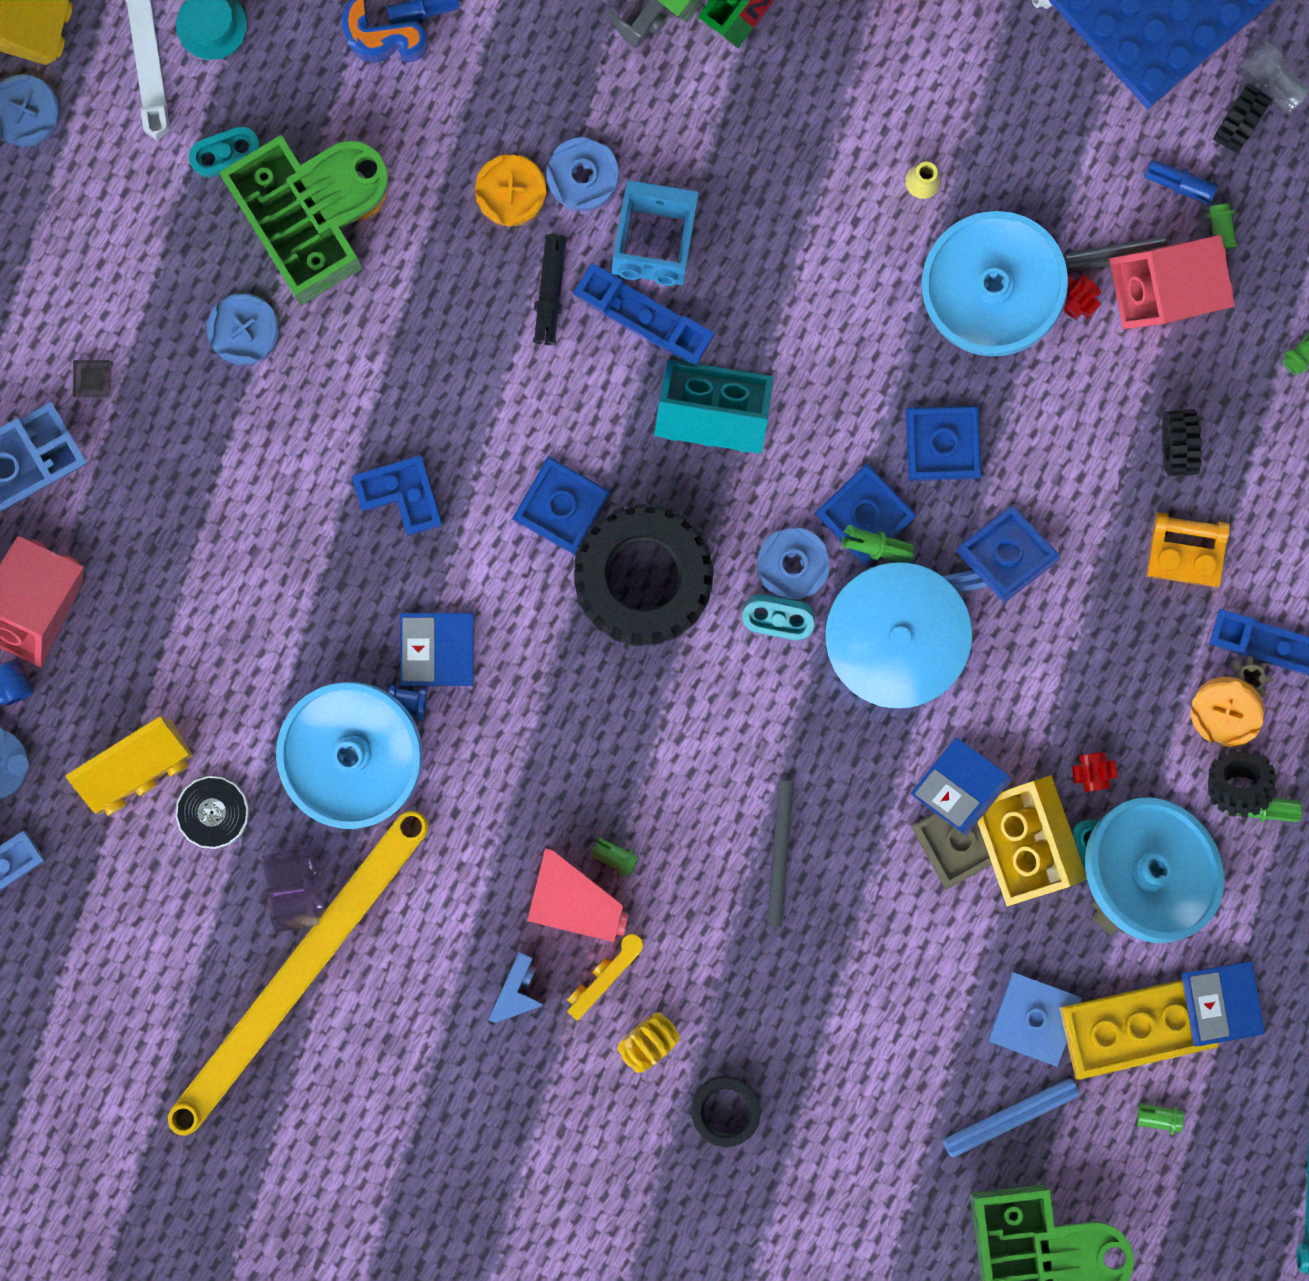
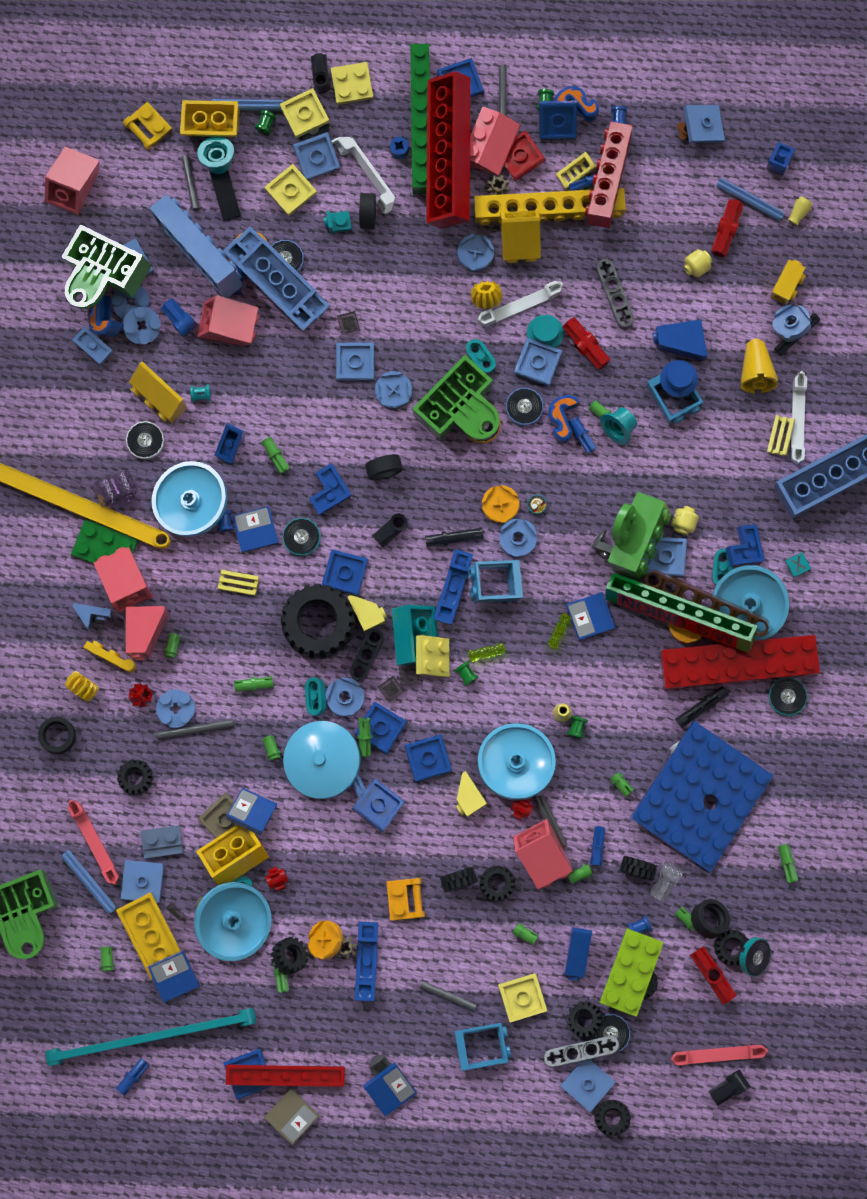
camera: 80 degrees right, 5 degrees down
(112, 108) = (486, 295): none -> yellow gear
(144, 695) = (194, 390): none -> teal bush
(169, 385) = (355, 361): none -> medium blue tile
(263, 654) = (229, 443): none -> blue slope
(264, 51) = (538, 362): none -> medium blue plate
(307, 577) = (275, 455): none -> bright green axle
(340, 98) = (524, 406): none -> black tile
(387, 381) = (384, 467): none -> black tyre
(394, 937) = (99, 541): none -> green plate
(467, 916) = (122, 579): none -> coral slope
(474, 568) = (301, 537): none -> black tile
(508, 403) = (389, 531): none -> black piece
(529, 125) = (536, 504): none -> tile
(541, 678) = (237, 582): none -> light yellow tile
(651, 482) = (367, 613): none -> light yellow slope
(692, 938) = (140, 695): none -> red gear
(715, 891) = (167, 701): none -> medium blue plate
(720, 487) = (367, 645): none -> black beam
(725, 725) = (253, 684): none -> bright green pin
(761, 83) = (590, 616): none -> blue tile
(763, 383) = (432, 656): none -> light yellow plate
(773, 146) = (559, 631): none -> clear neon green axle
(777, 286) = (486, 652): none -> clear neon green axle
(782, 438) = (408, 675): none -> clear smoke tile
(800, 477) = (391, 689): none -> clear smoke tile
(808, 333) = (466, 674): none -> green bush
(852, 722) = (271, 748): none -> bright green pin
(863, 985) = (146, 777): none -> black tyre
(941, 1090) = (94, 842): none -> coral piece
(958, 160) = (577, 727): none -> green bush
(971, 965) = (161, 842): none -> sand blue plate
(1034, 387) = (468, 797): none -> light yellow slope
(1080, 110) = (622, 785): none -> bright green pin
(1108, 969) = (173, 909): none -> clear smoke tile
(1217, 362) = (497, 871): none -> black tyre

